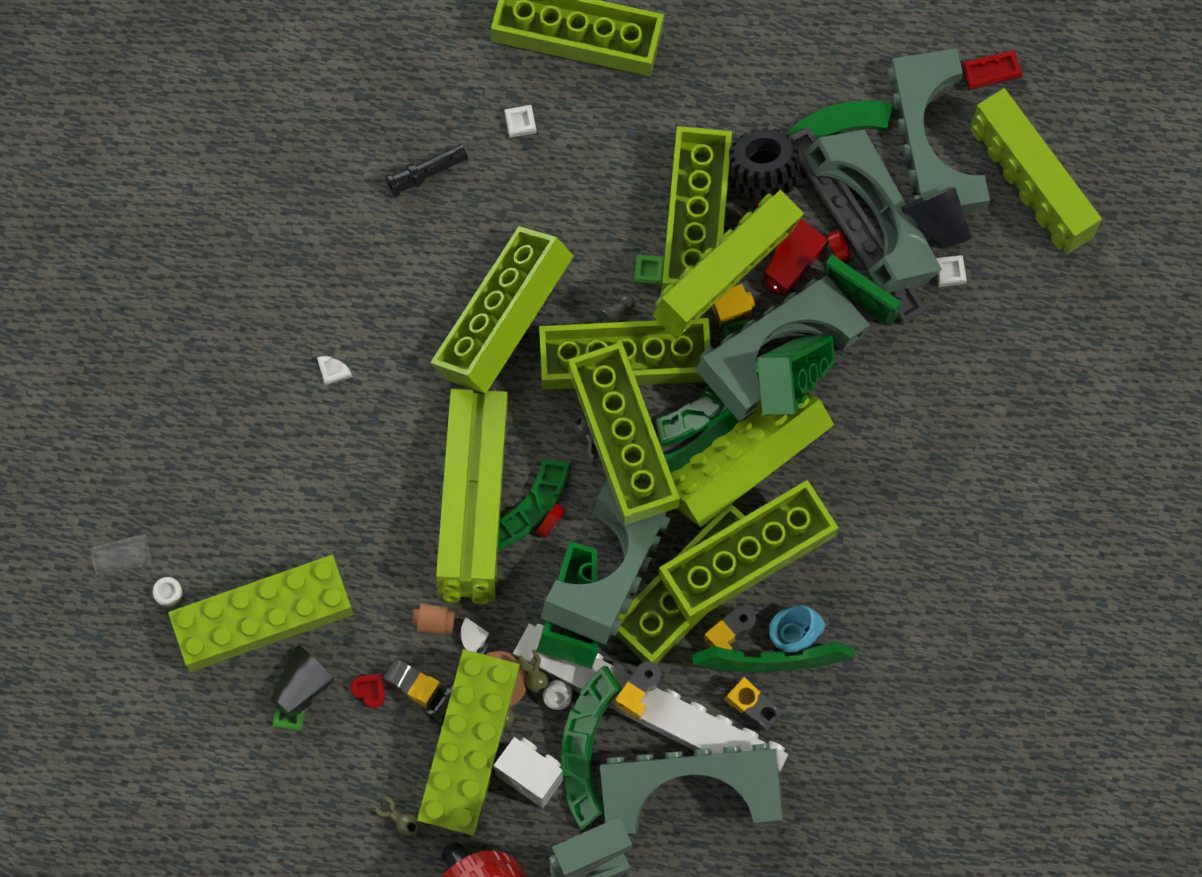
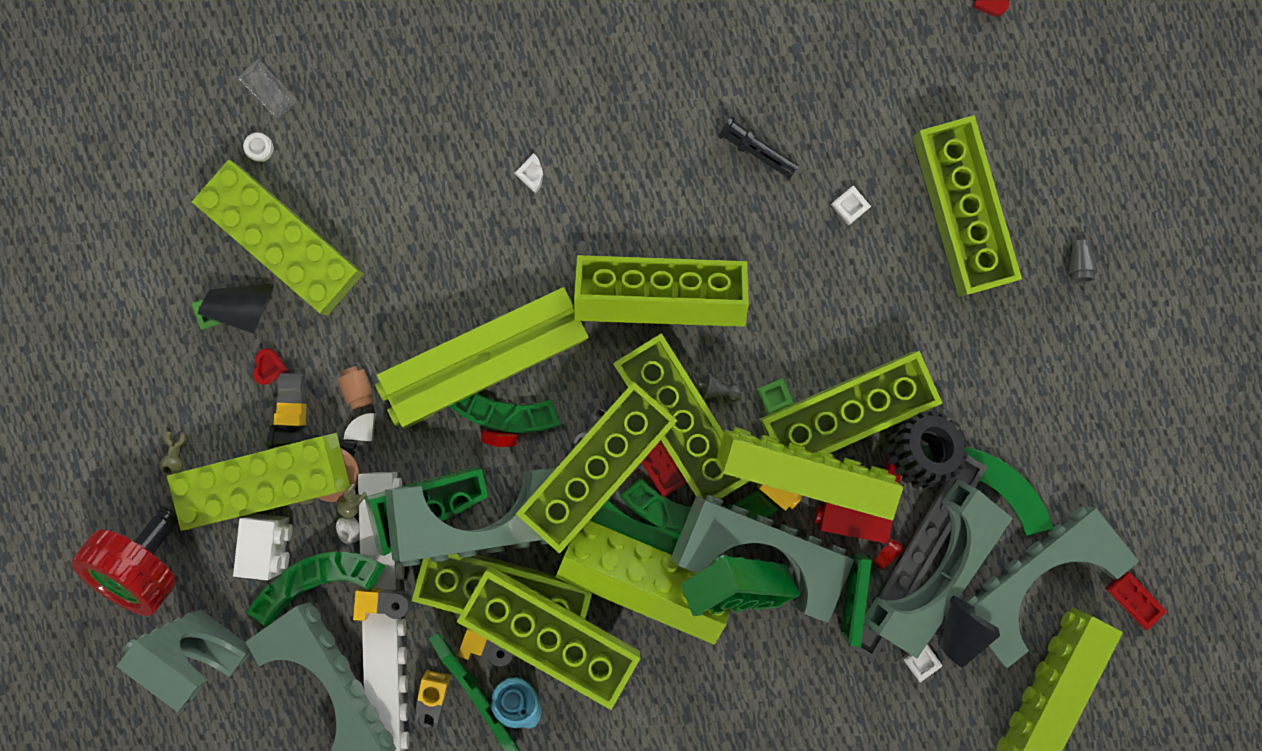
camera: 60 degrees right, 15 degrees up
(662, 395) = (663, 470): none -> red plate

